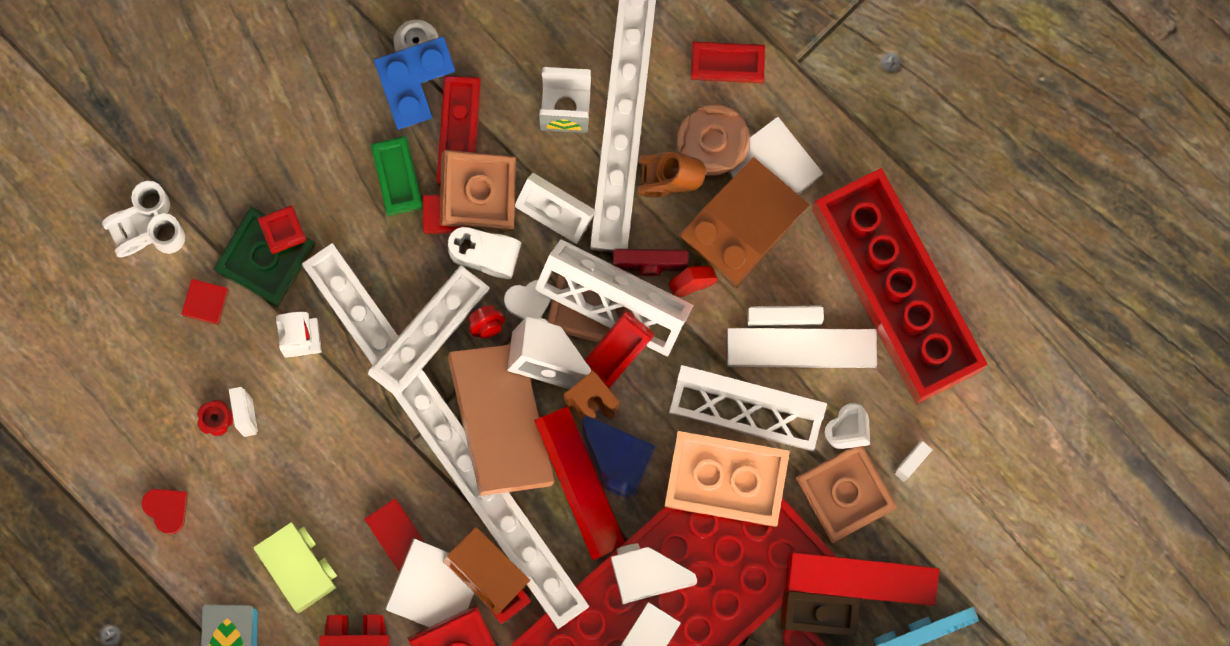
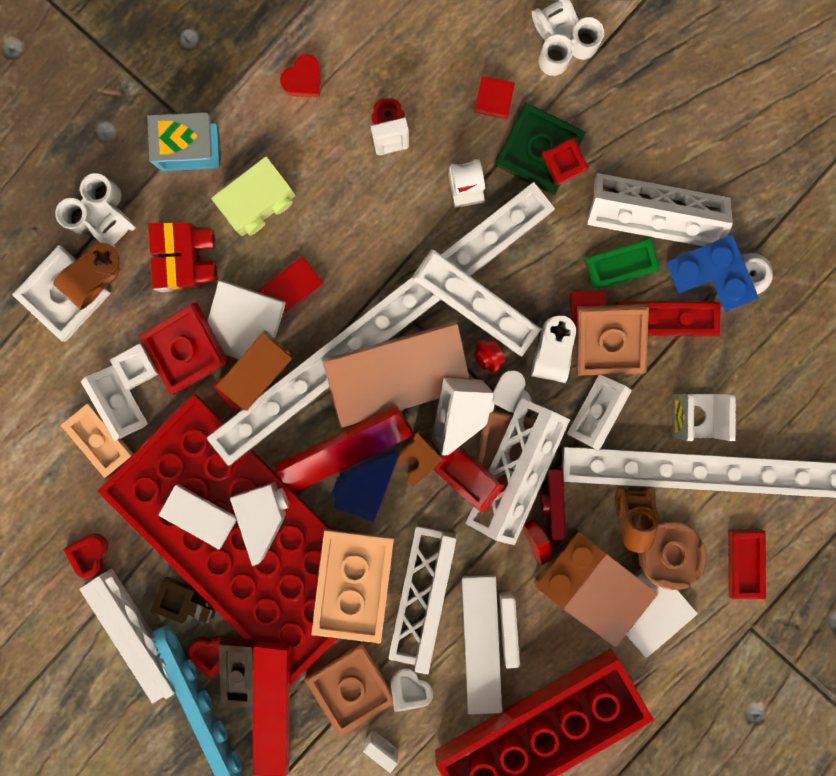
camera: 90 degrees right, 10 degrees up
(347, 132) = (659, 216): none -> white fence

